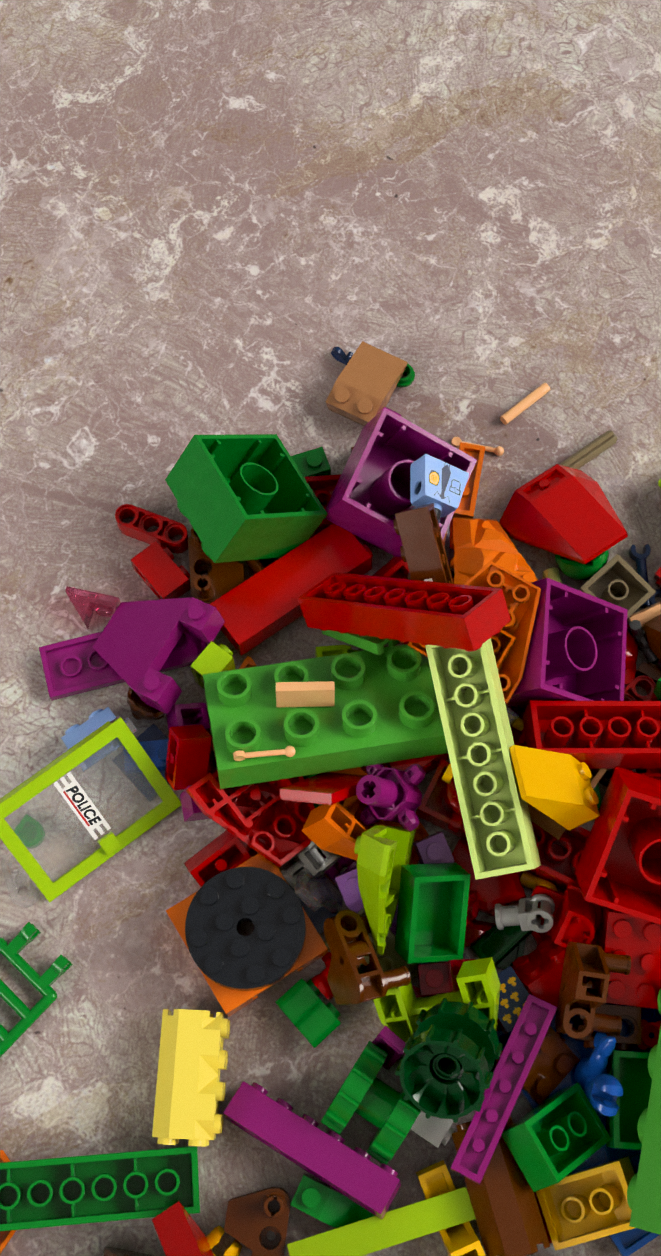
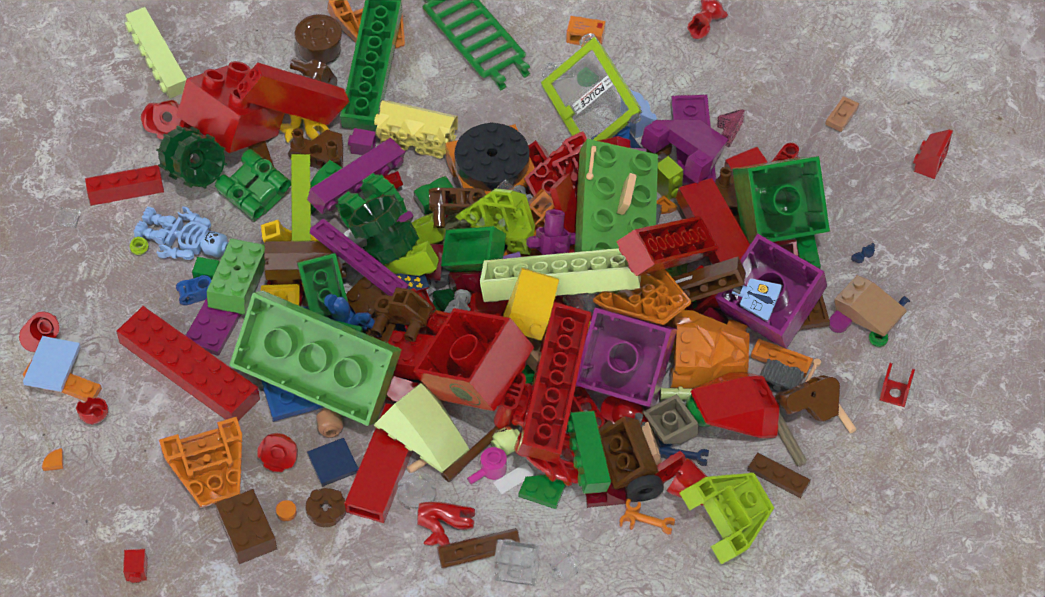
camera: 105 degrees right, 15 degrees down
(41, 465) = (842, 114): none -> nougat plate
(96, 339) = (933, 153): none -> red slope
(228, 1164) = (362, 141): none -> magenta brick
(267, 405) = (867, 251): none -> dark blue piece
(296, 1090) = (394, 178): none -> red plate
(477, 338) = (890, 384): none -> red piece
(500, 475) = (781, 377): none -> dark grey brick
(530, 426) = (821, 404): none -> reddish brown piece
(637, 460) = (779, 475): none -> reddish brown plate

